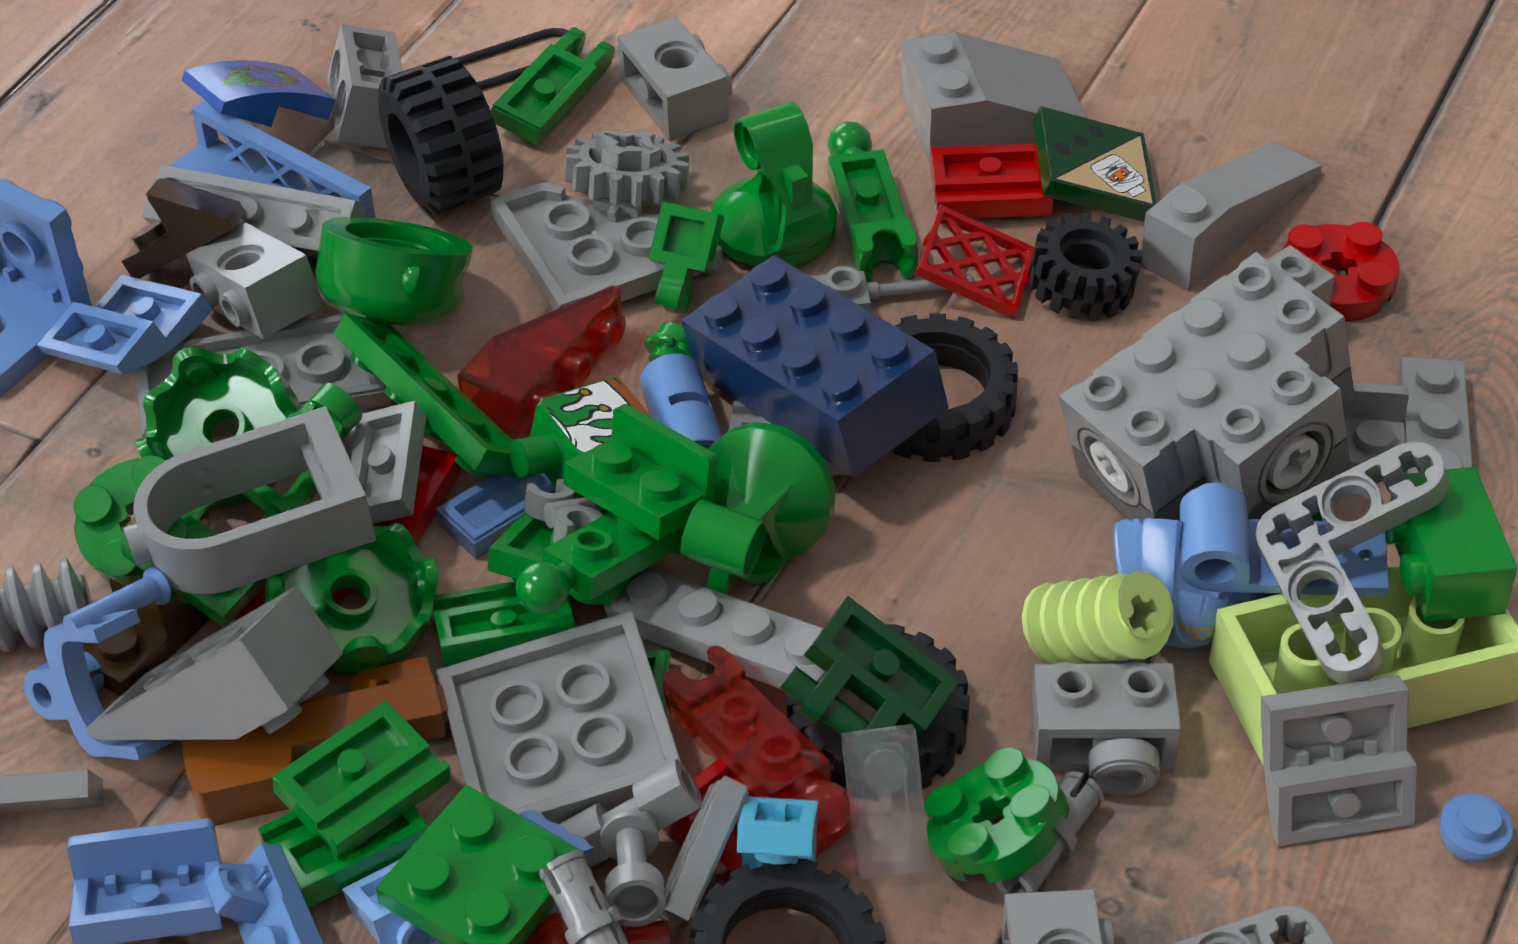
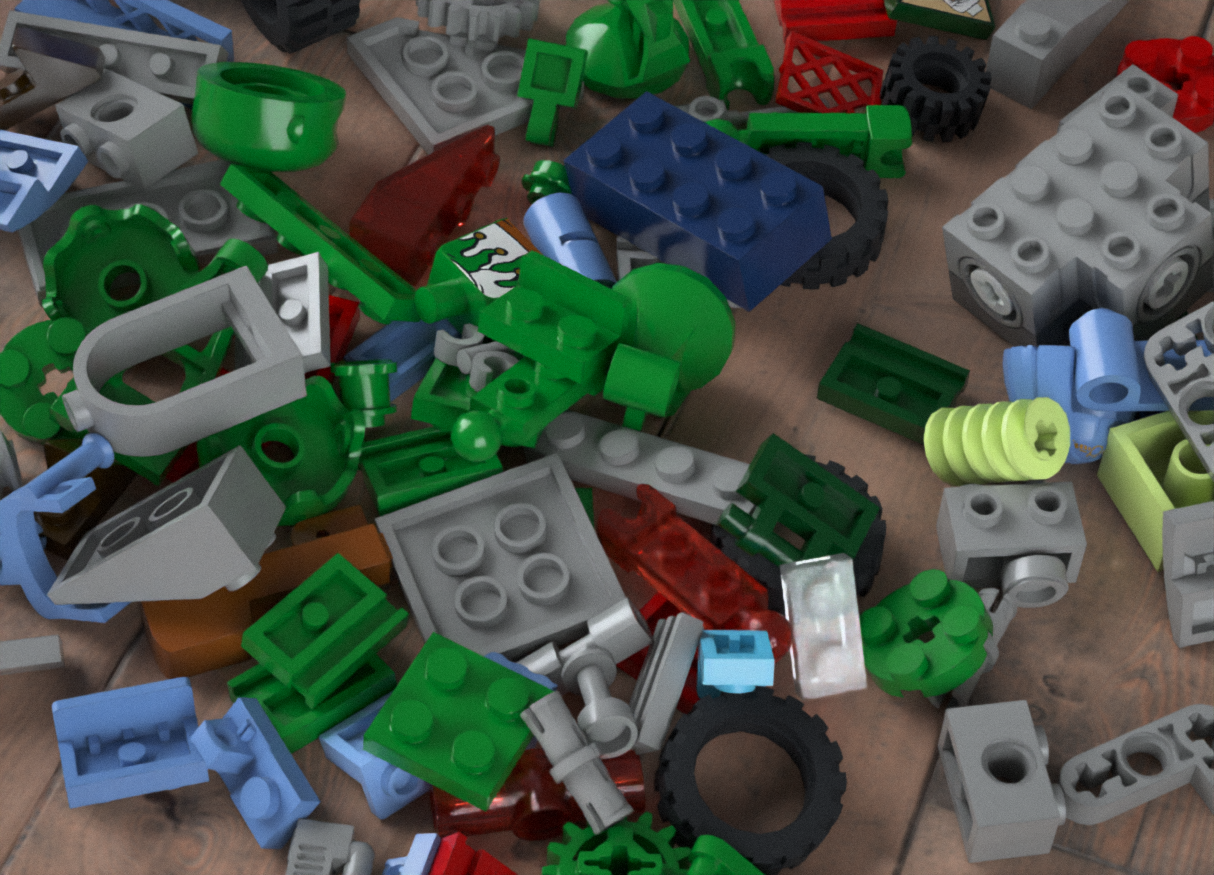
camera: 10 degrees left, 5 degrees up
(450, 541) = (366, 388): none -> green brick
(997, 556) = (891, 382): none -> dark green plate
(1011, 310) = (871, 136): none -> green plate

